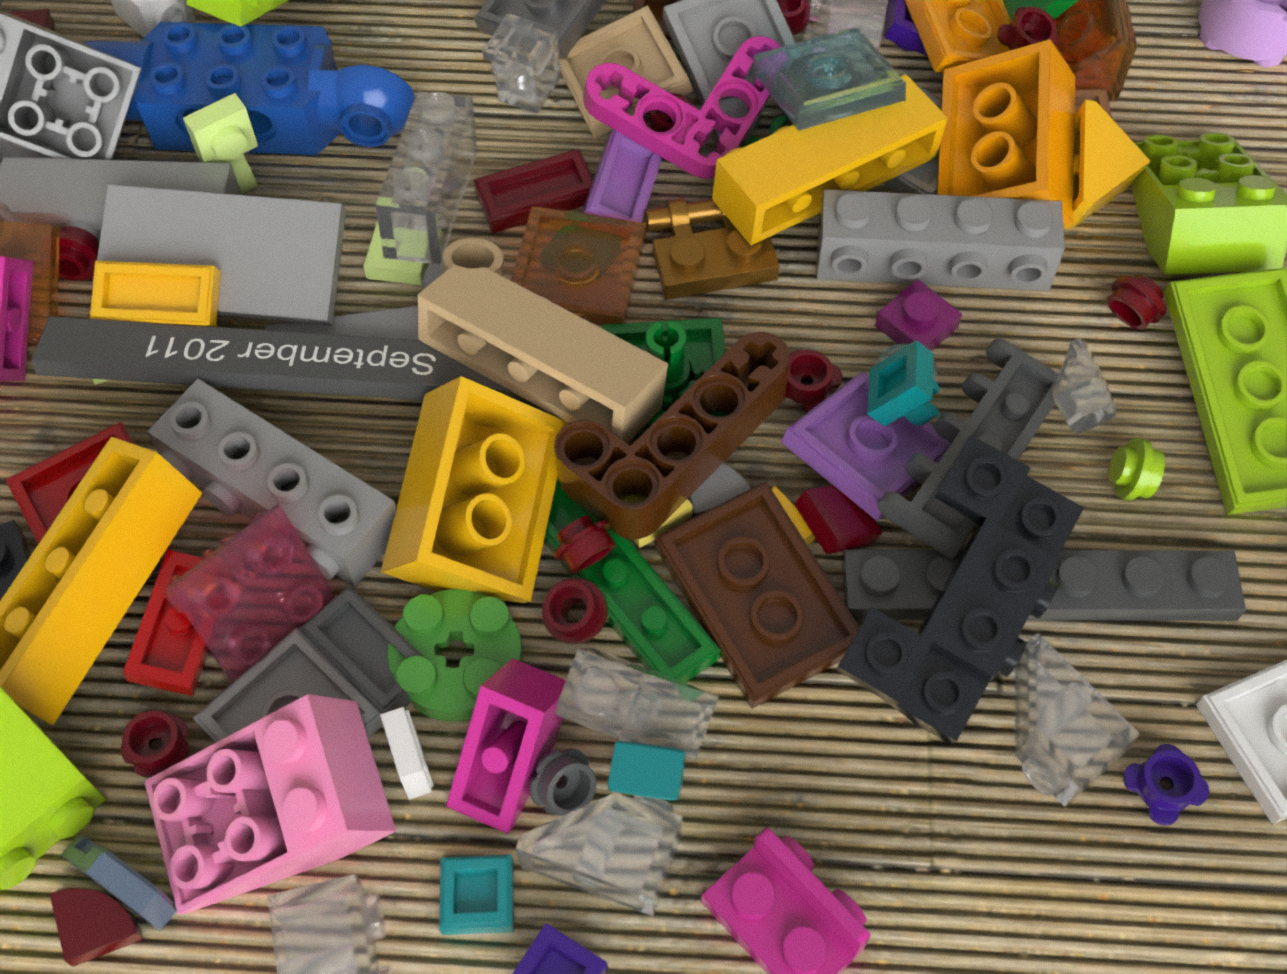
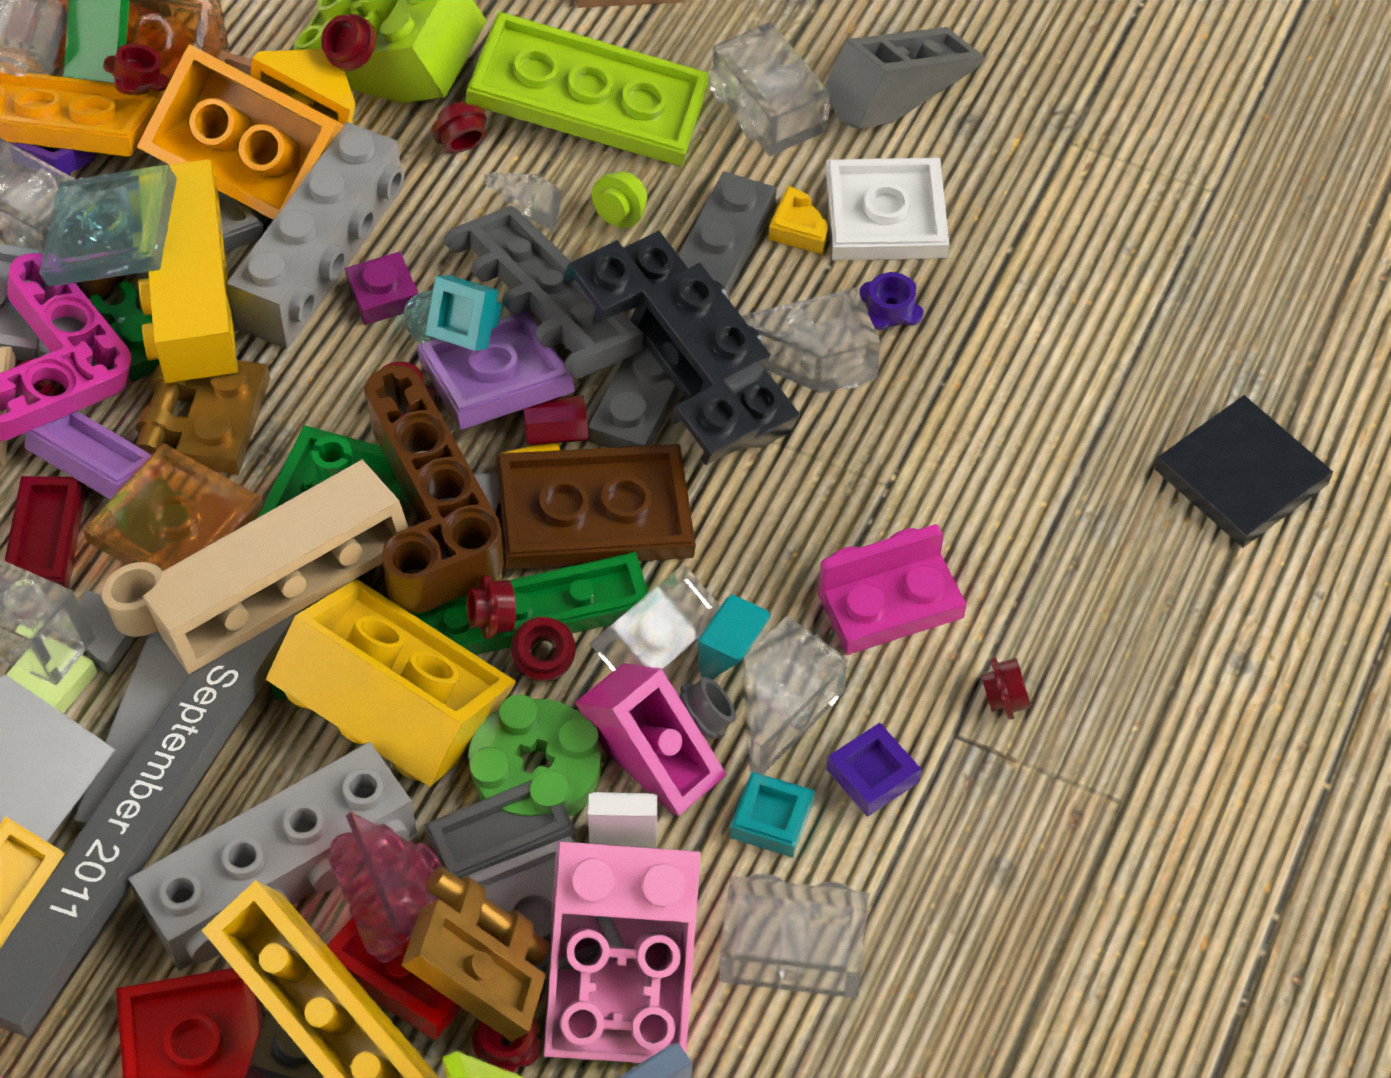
camera: 70 degrees left, 5 degrees down
(165, 673) = (478, 954): none -> pearl gold plate
(1152, 160) = (348, 41): none -> dark red plate
(1220, 651) = (798, 223): none -> yellow tile

